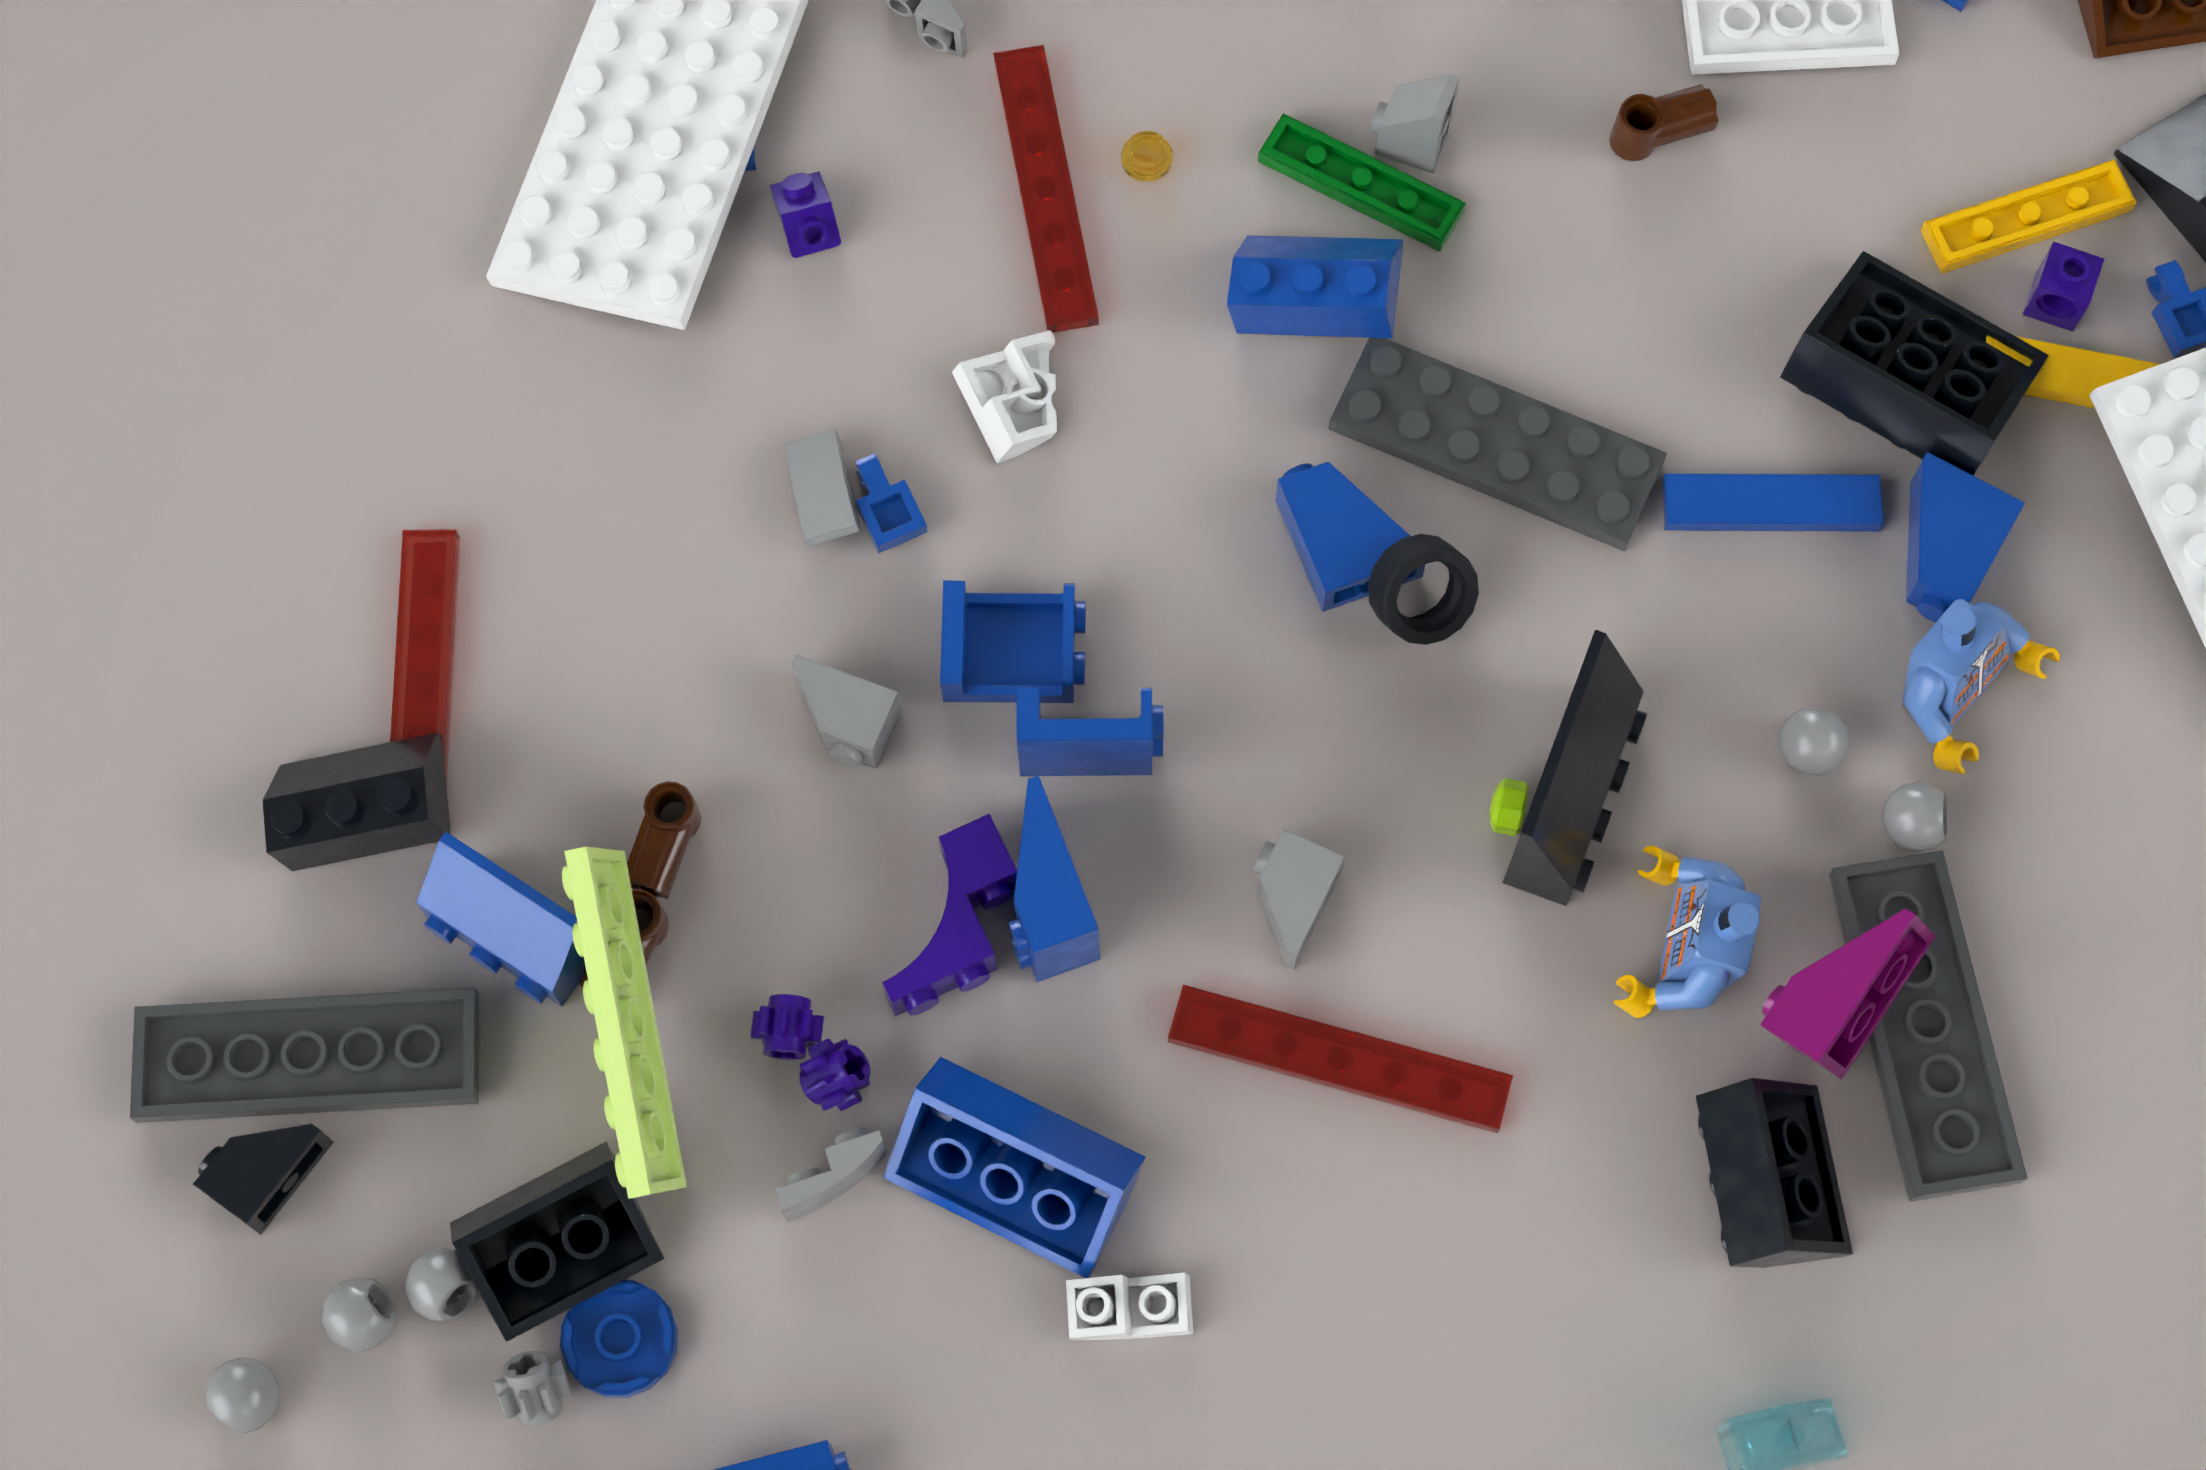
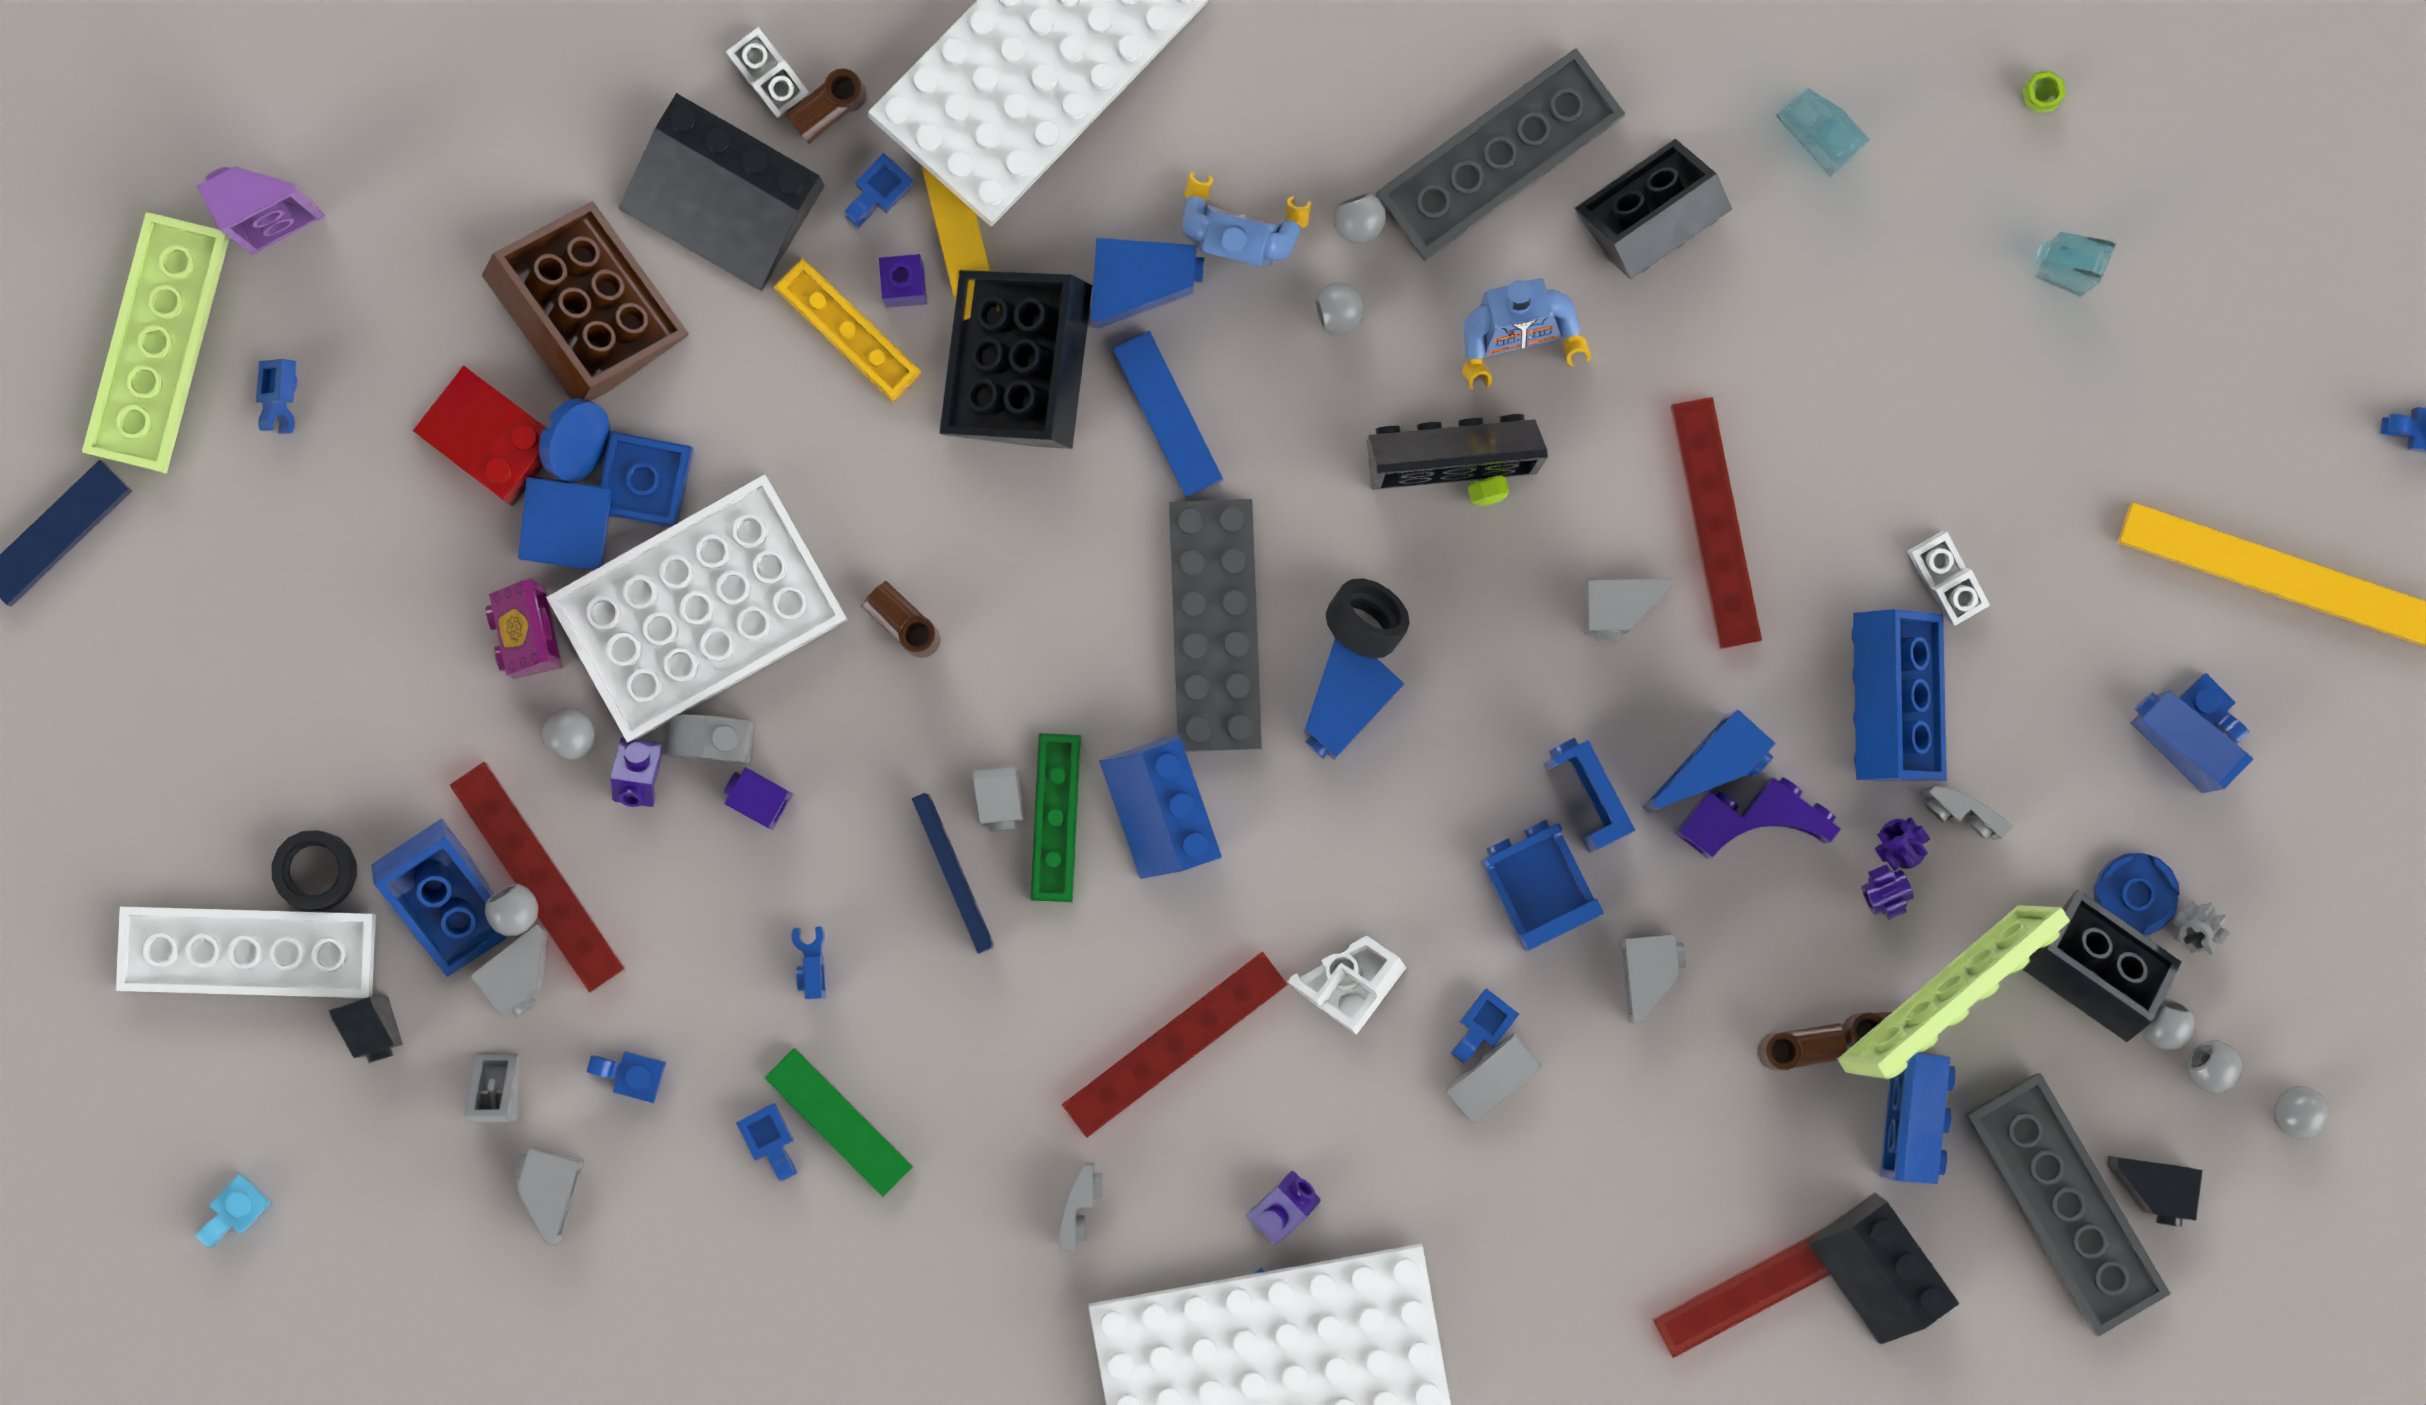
camera: 120 degrees left, 15 degrees up
(1146, 156) = (1114, 982): clear yellow plate -> none
(1354, 47) = (953, 872): none -> dark blue tile
(1842, 997) = (1544, 216): magenta slope -> none

